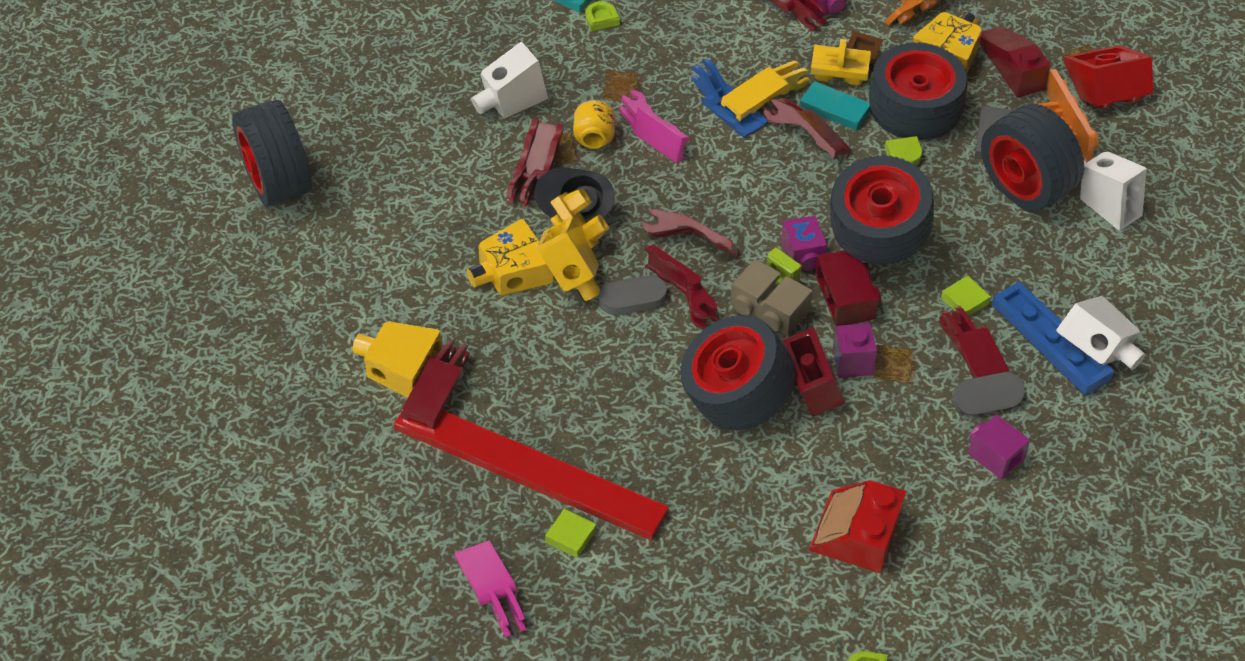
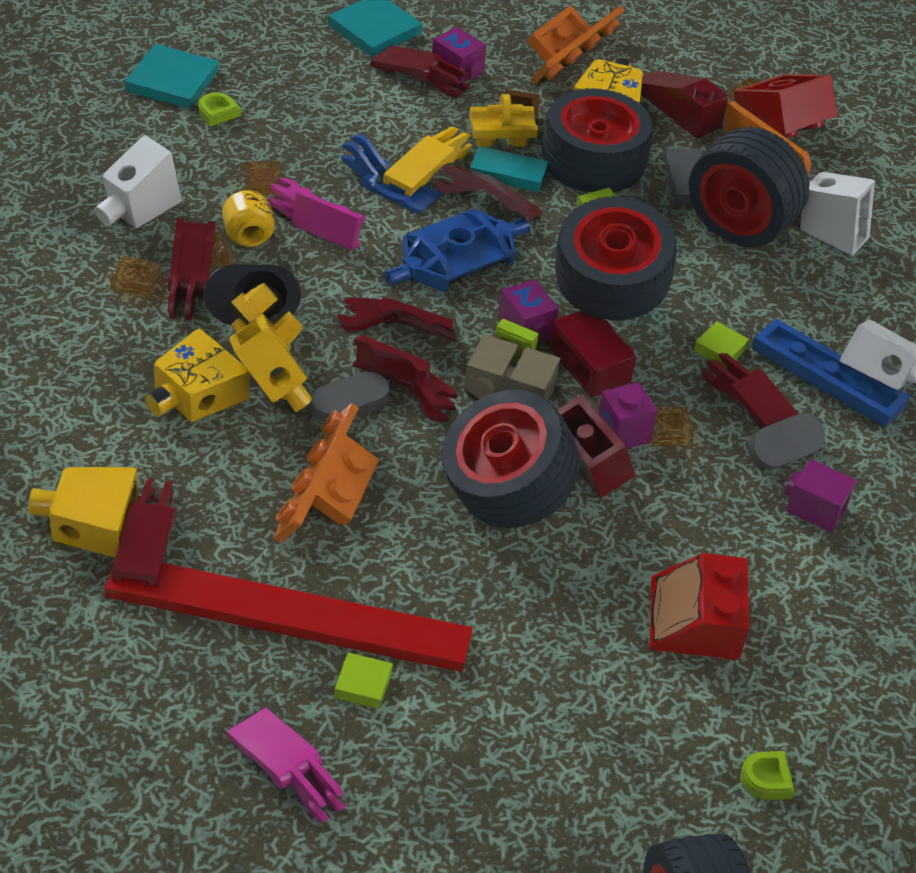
camera: 20 degrees left, 5 degrees down
(490, 162) = (135, 276): none -> clear orange tile
(598, 364) = (333, 479): none -> orange bracket
(743, 183) = (437, 260): none -> blue plate

